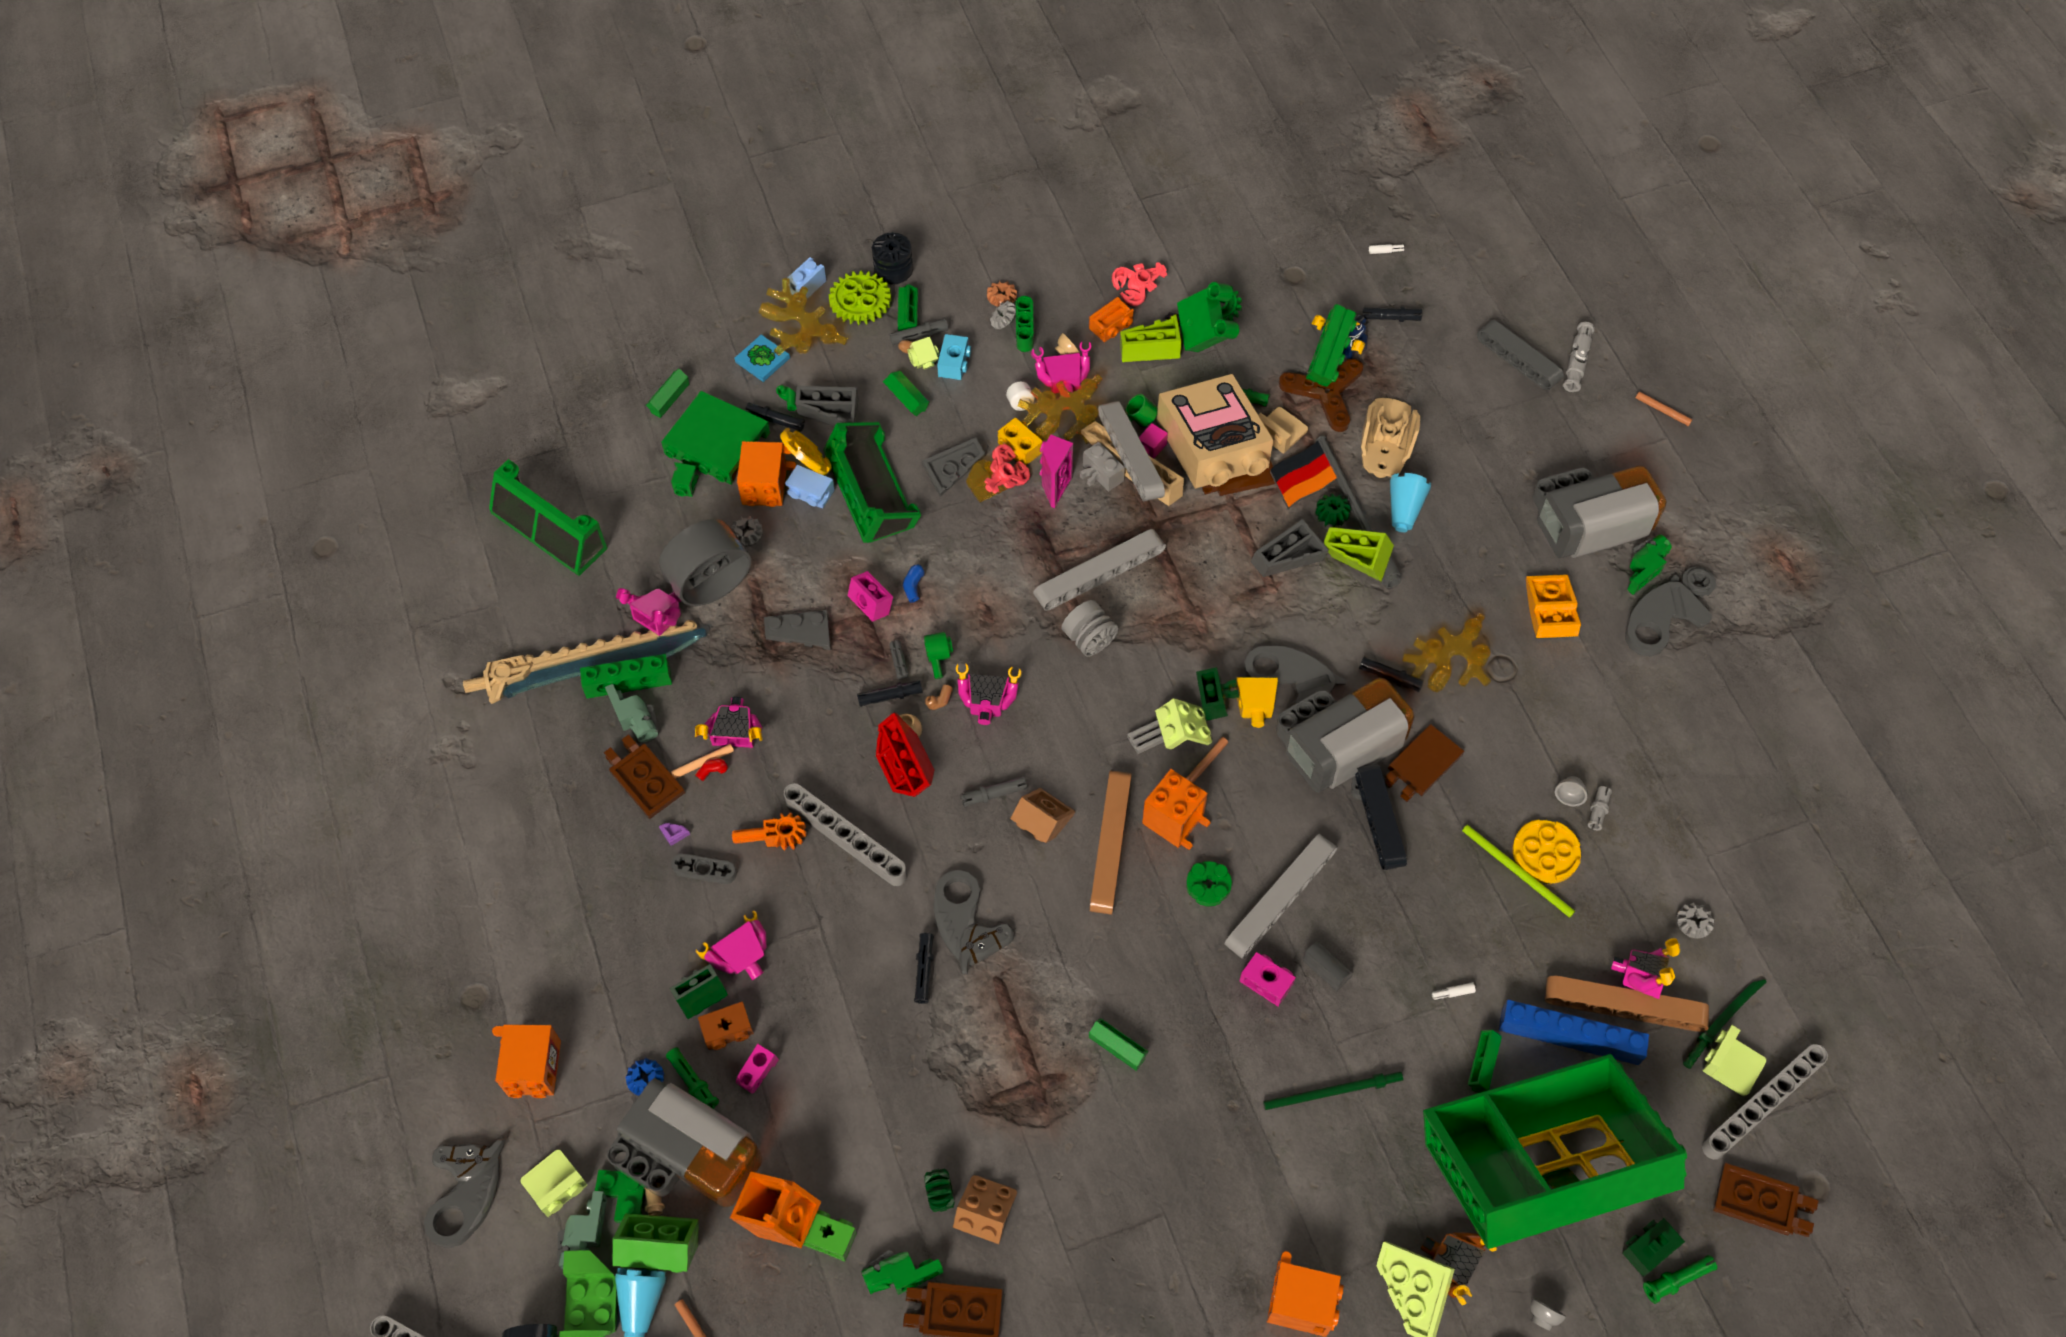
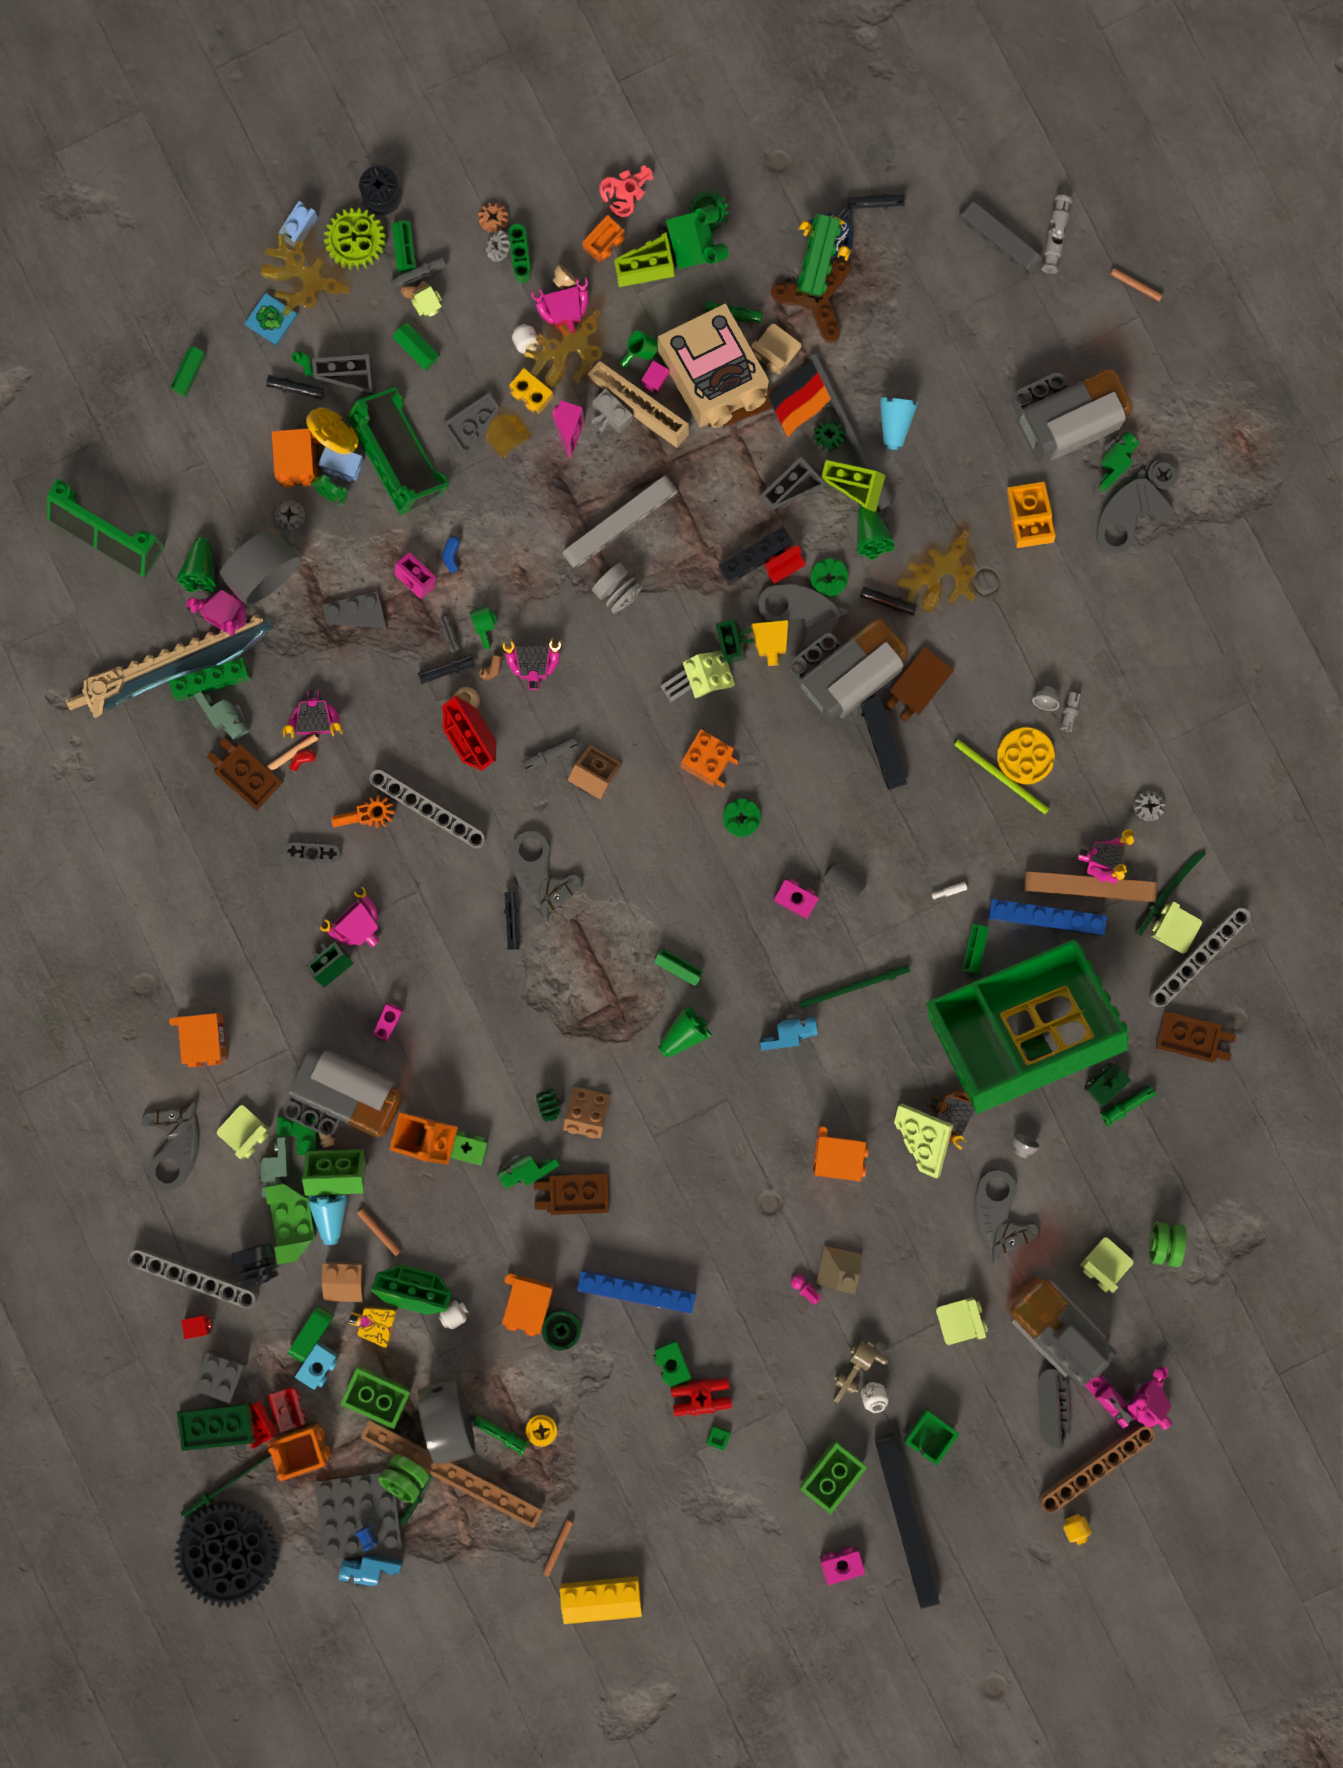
camera: 10 degrees left, 25 degrees up
(637, 567) = (198, 568): none -> green cone
(649, 1066) = (307, 1039): blue gear -> none
(673, 832) = (280, 821): medium lavender tile -> none
(684, 479) = (223, 468): green window -> none
(697, 1087) = (345, 1044): green pin -> none
(712, 436) = (242, 417): green panel -> none
(714, 1022) = (345, 990): dark orange brick -> none
(792, 506) = (329, 490): none -> green plate
(953, 357) = (452, 289): medium azure brick -> none
(1004, 472) = (519, 429): coral animal -> none
(1110, 842) = (655, 790): medium nougat beam -> none
(1117, 1121) = (684, 1033): none -> green cone
(1131, 451) = (636, 399): light grey beam -> none
(1205, 762) = (730, 704): nougat bar -> none
(1245, 614) = (755, 556): none -> black brick
(1249, 1136) = (790, 1031): none -> dark azure plate
(1277, 624) = (784, 564): none -> red bracket
(1280, 896) = (803, 823): light grey beam -> none
(1331, 636) = (837, 570): none -> green plate
(1377, 606) = (872, 534): none -> green cone
(1378, 249) = (866, 120): white pin -> none
(1388, 436) = (877, 341): tan piece -> none

